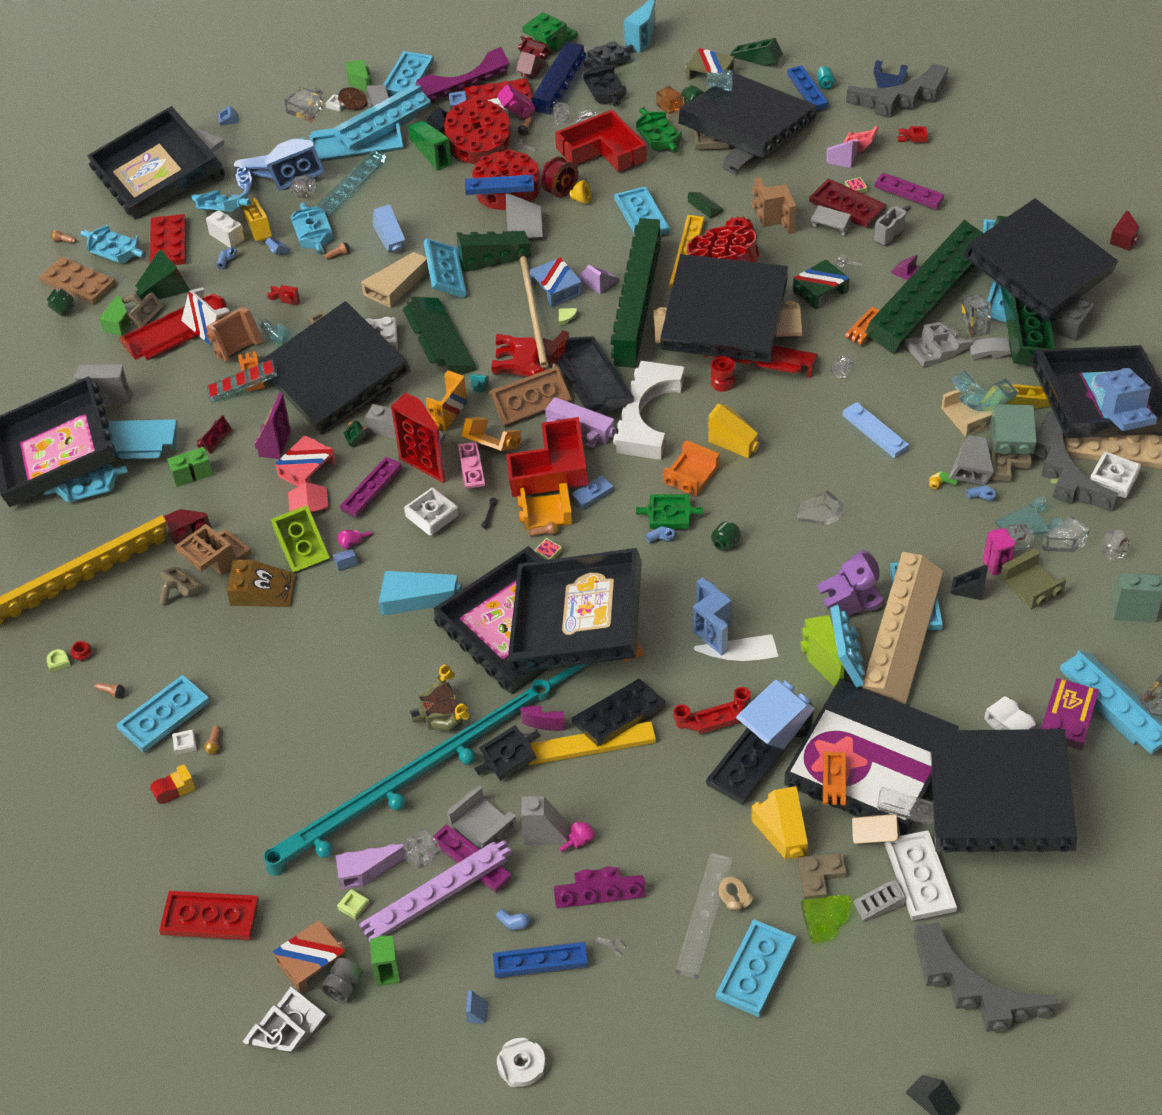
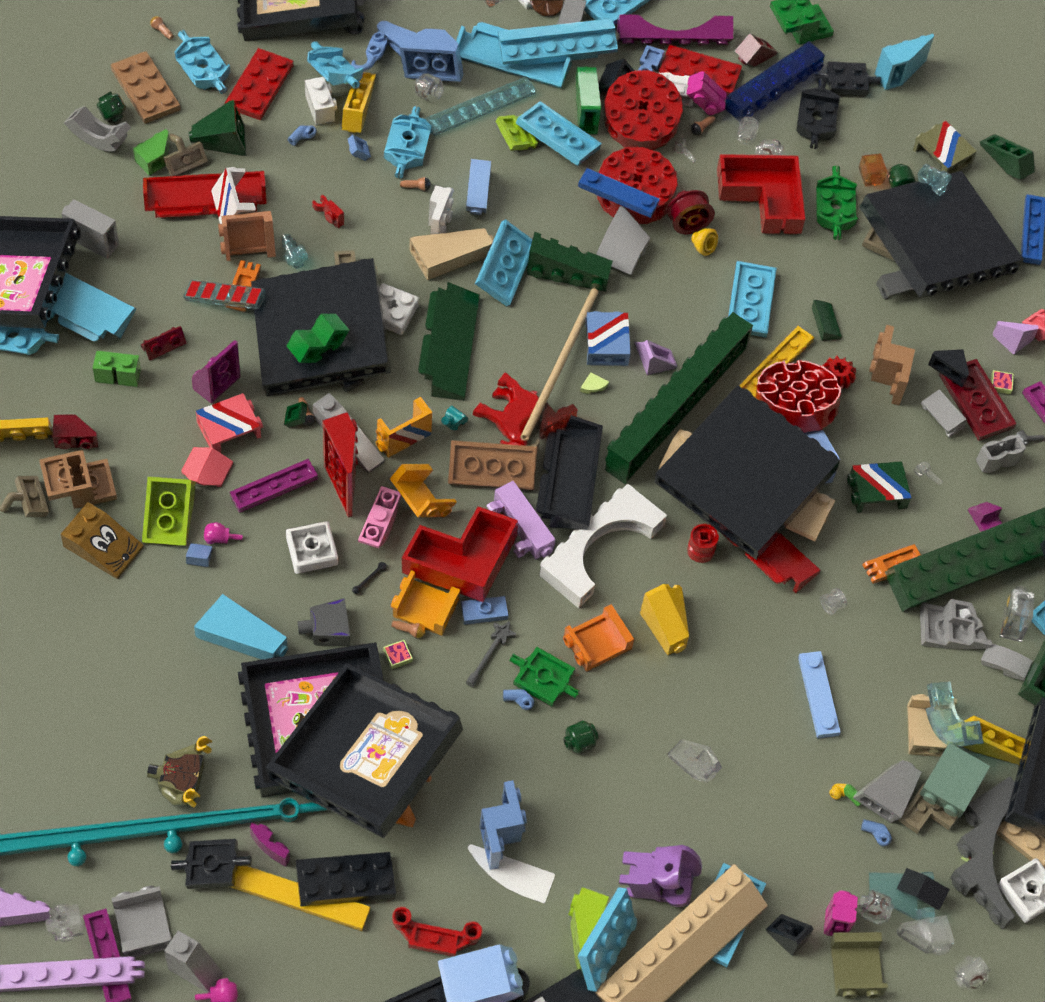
camera: 20 degrees right, 10 degrees up
(60, 324) = (95, 132): none -> light grey arch
(345, 363) = (326, 334): none -> green brick
(371, 258) = (440, 209): none -> white plate
(391, 187) = (514, 135): none -> lime plate
(423, 173) = (558, 133): none -> medium azure plate
(480, 554) = (327, 624): none -> dark grey torso
(539, 48) = (770, 24): dark red hinge -> none
(615, 502) = (501, 634): none -> dark grey piece
(815, 187) = (951, 365): none -> black slope
(1042, 507) = (923, 888): none -> black slope

